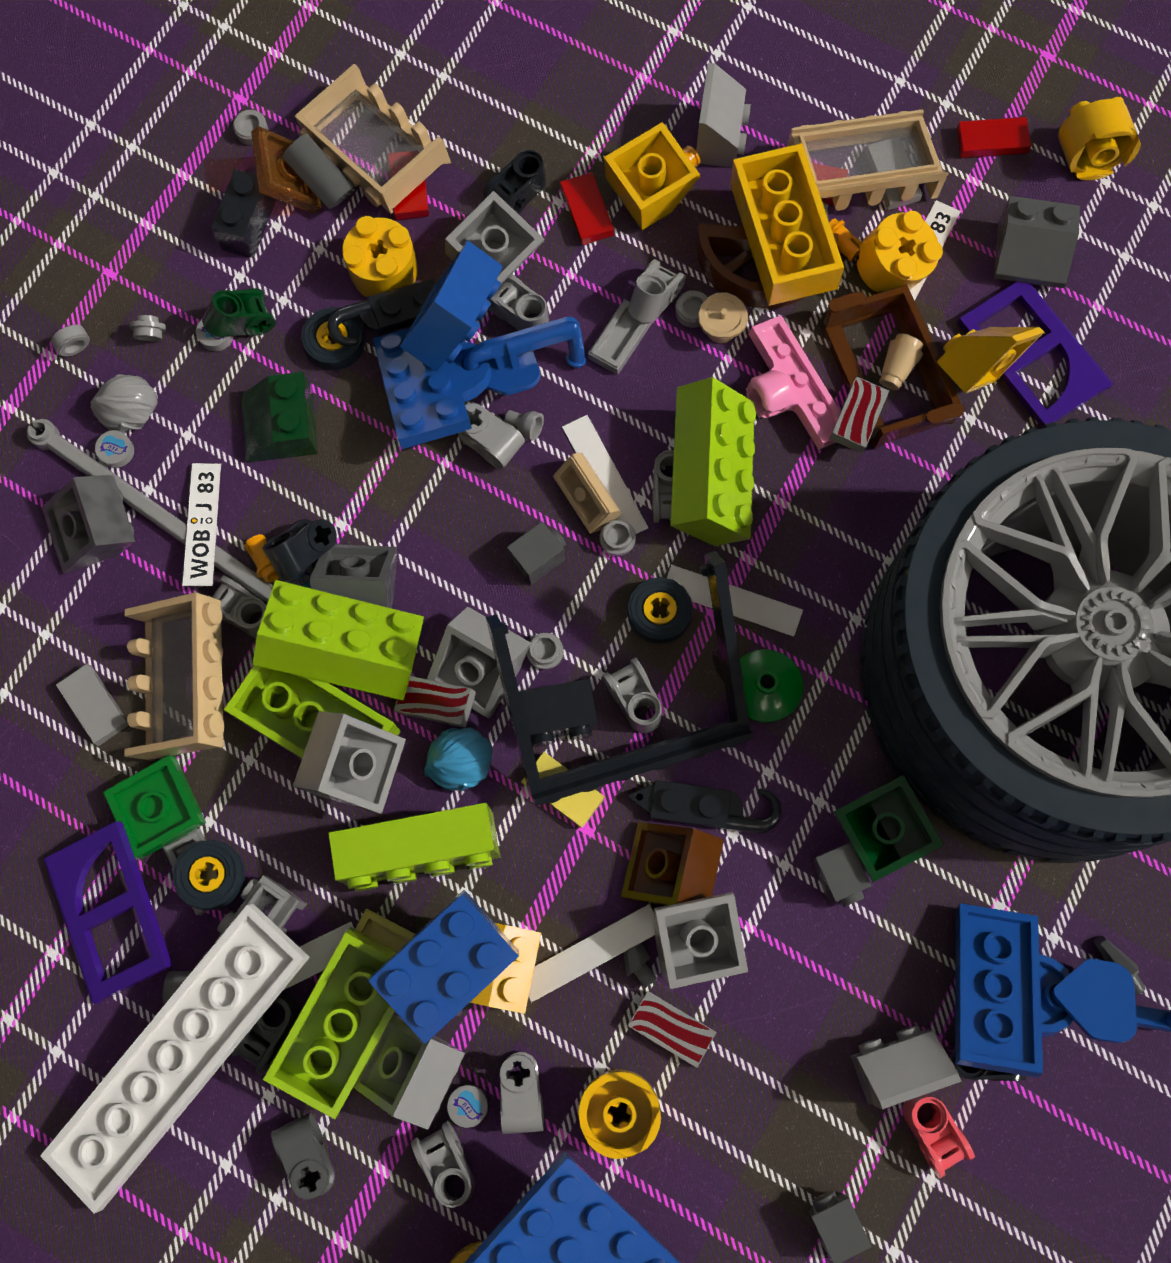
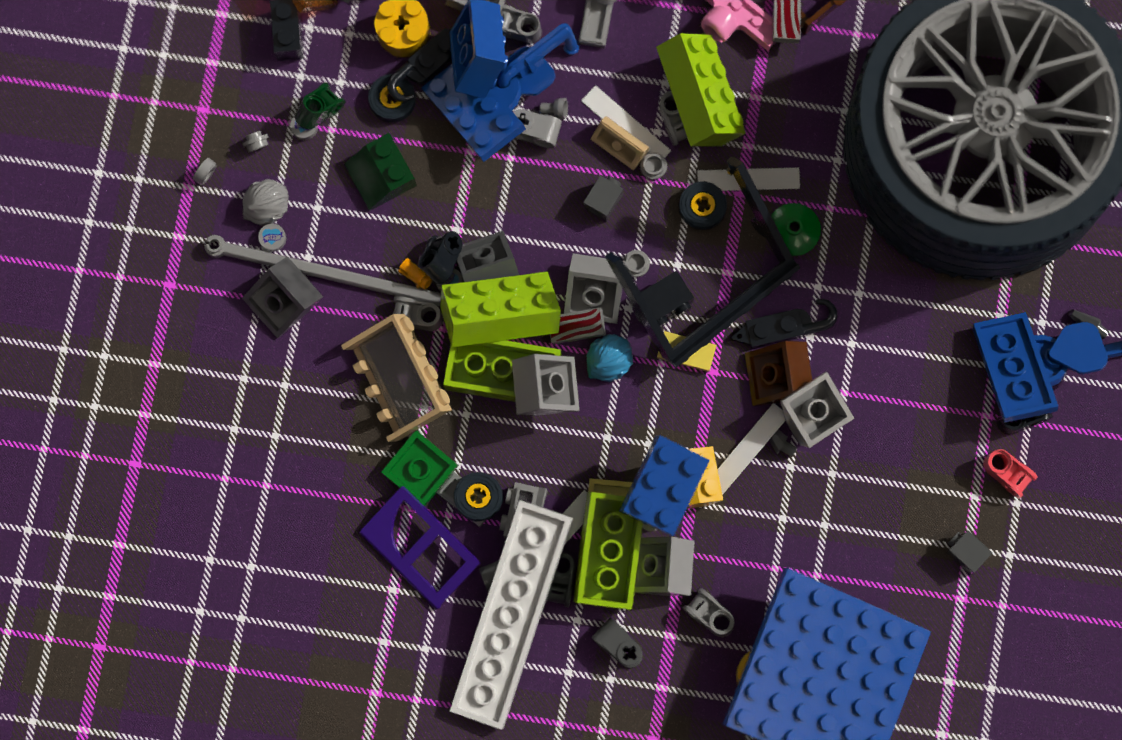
camera: 20 degrees left, 5 degrees up
(92, 704) = (343, 418): light grey tile -> none
(201, 525) = (360, 266): white sticker -> none
(413, 846) = (608, 423): lime brick -> none
(468, 1106) = (708, 574): light grey tile -> none
(521, 1101) = (743, 557): light grey piece -> none
(630, 1135) = (818, 526): yellow brick -> none
(632, 690) = (706, 266): light grey piece -> none
(672, 1029) = (819, 475): tile -> none
(841, 875) = (890, 335): dark grey brick -> none
(888, 828) = (910, 293): dark green slope -> none
(903, 1067) = (973, 439): light grey slope -> none

